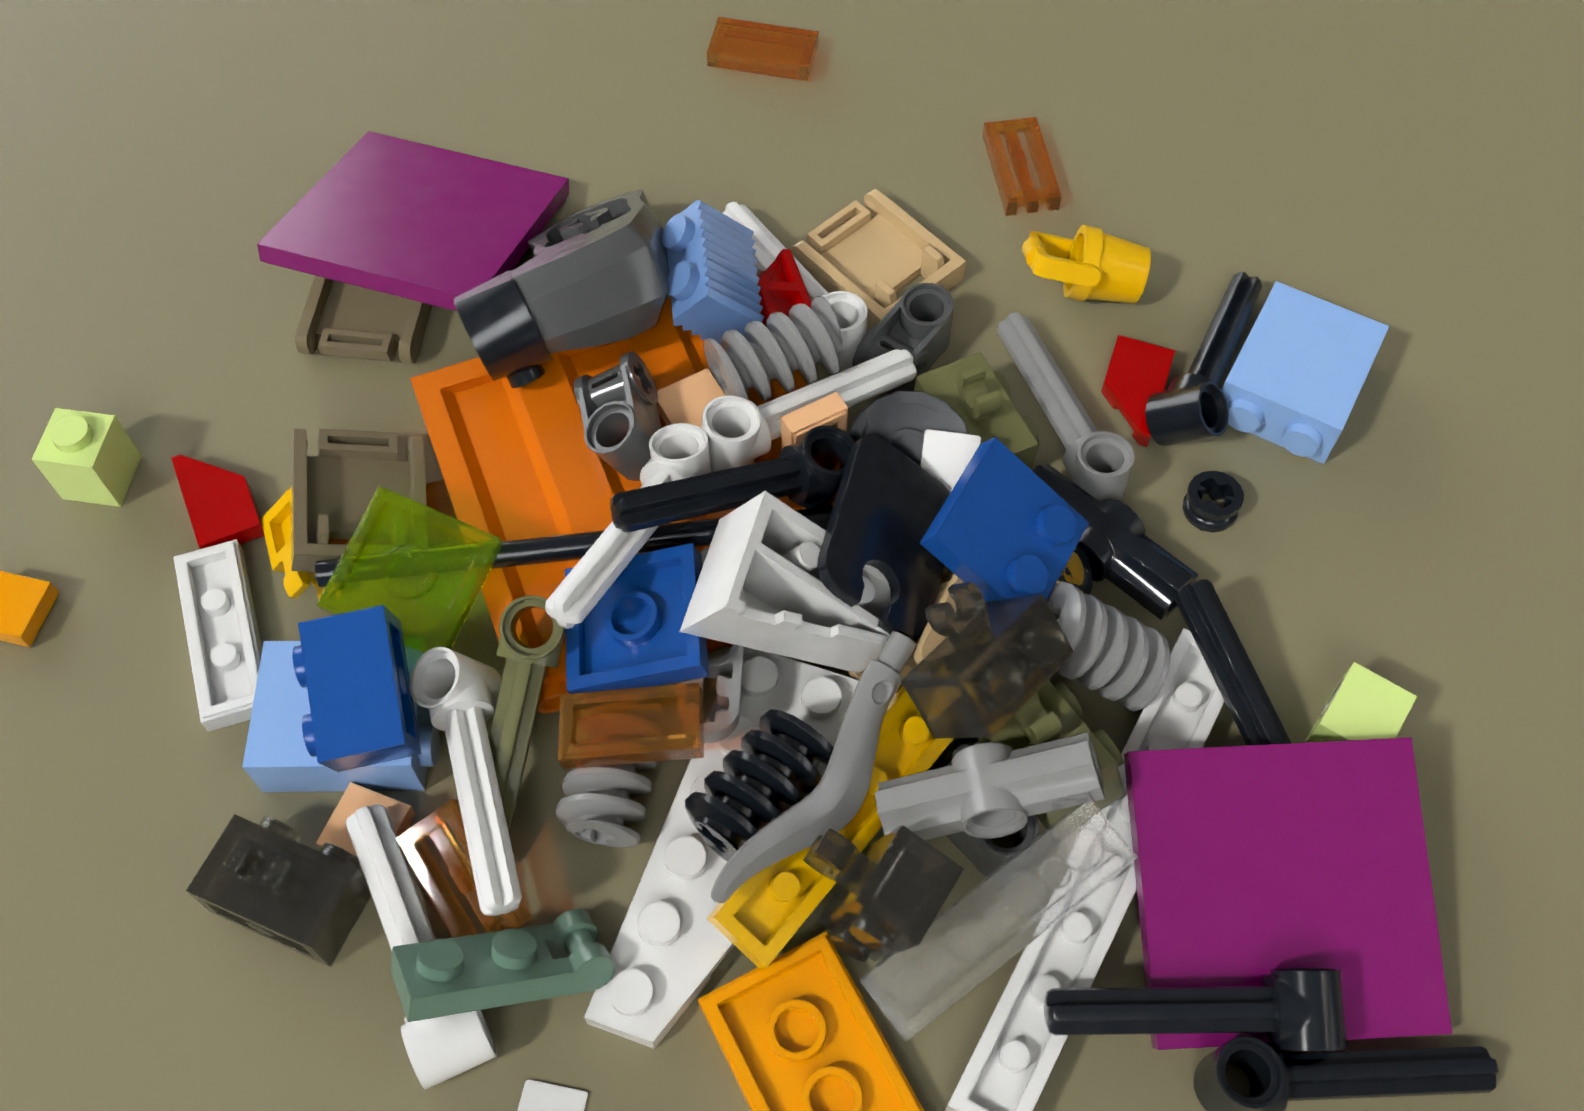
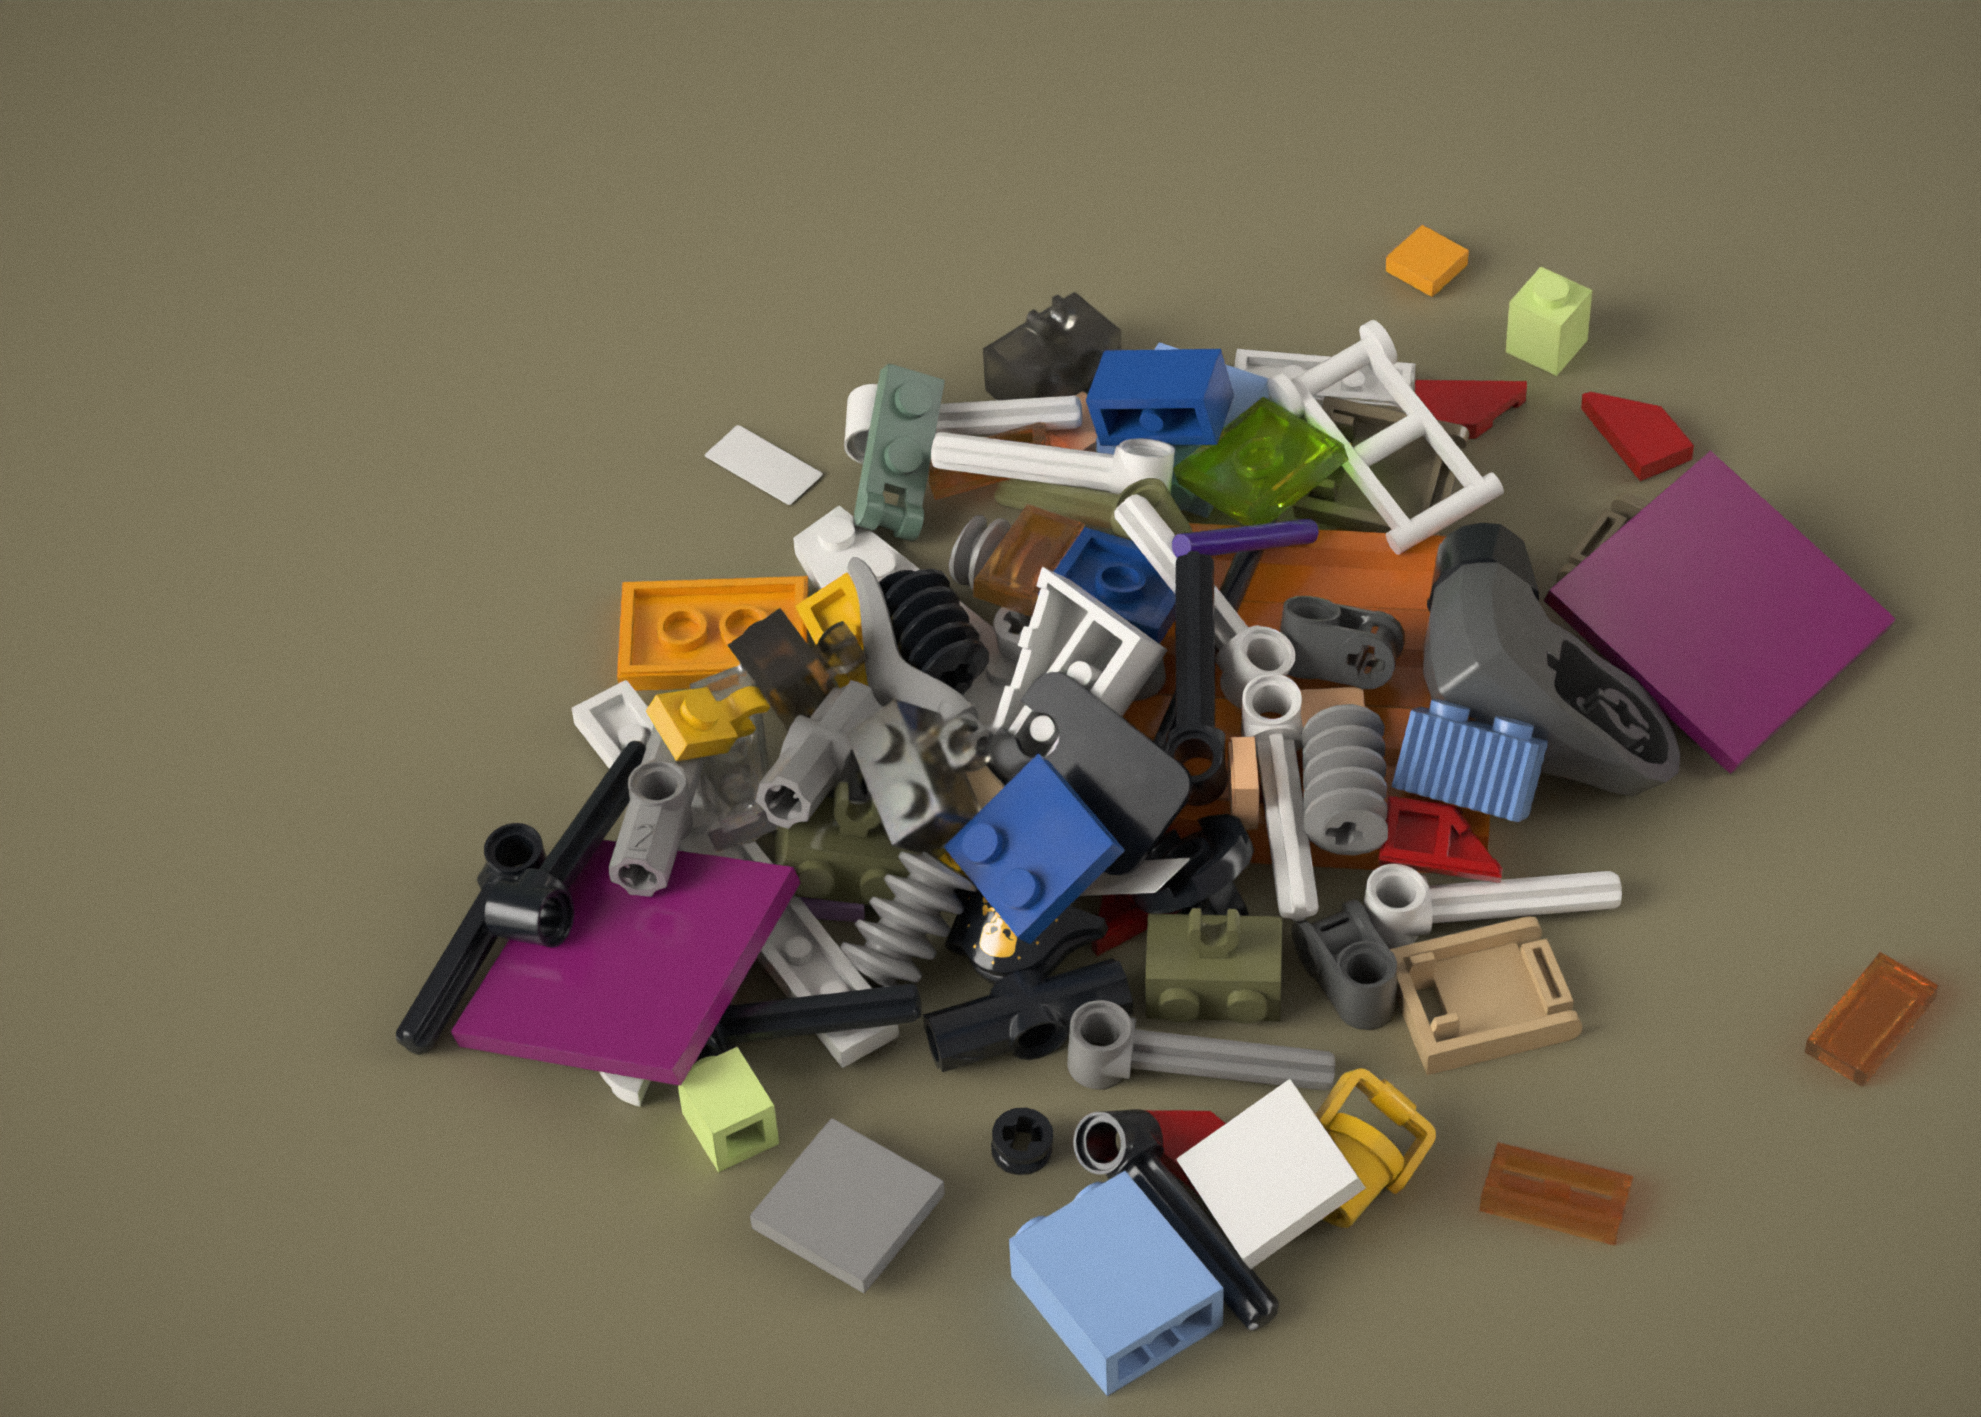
camera: 120 degrees right, 10 degrees down
(207, 361) = (1638, 433): none -> red tile
(233, 511) = (1379, 355): none -> white piece
(541, 523) = (1246, 538): none -> dark purple bar
(1033, 921) = (701, 726): none -> yellow plate
(1159, 291) = (1270, 1174): none -> white tile
(1169, 912) = (655, 818): none -> light grey piece
(1370, 588) = (847, 1205): none -> light grey tile

